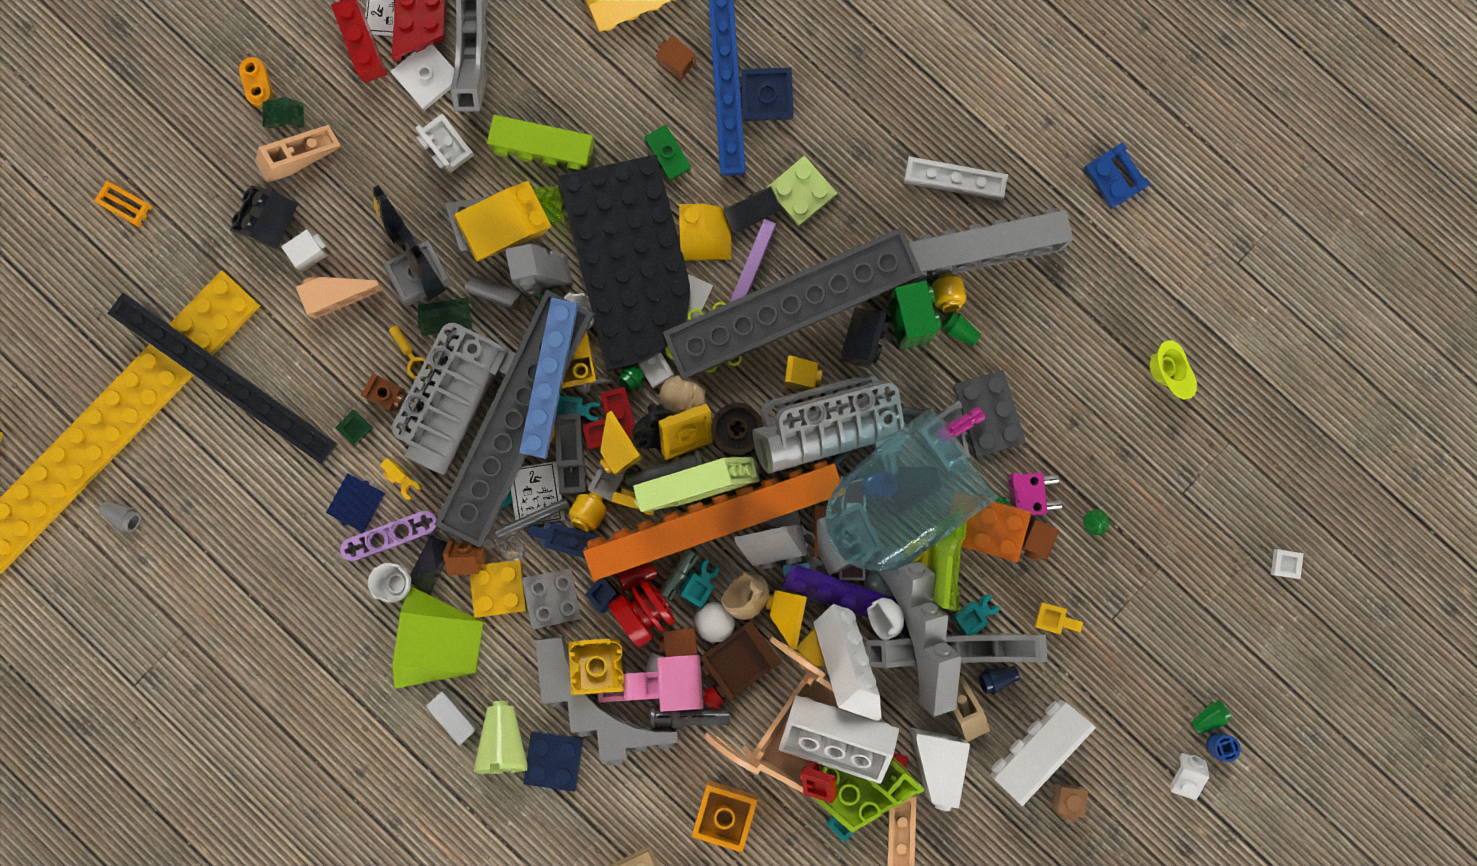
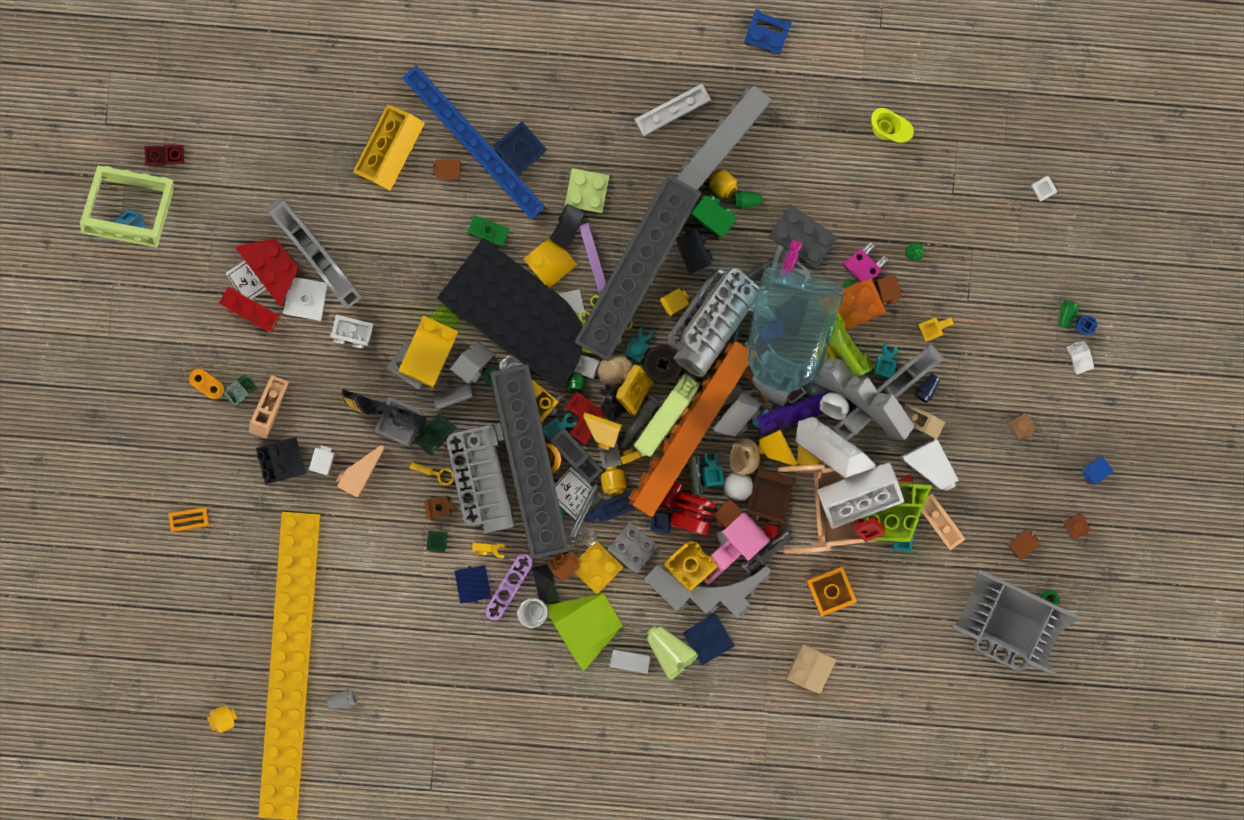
camera: 40 degrees left, 5 degrees up
(222, 378) = (338, 573): black plate -> none
(540, 143) = (409, 285): lime brick -> none
(549, 378) = (532, 422): medium blue plate -> none
(725, 392) = (637, 347): none -> teal plate
(1041, 751) = (983, 410): white slope -> none

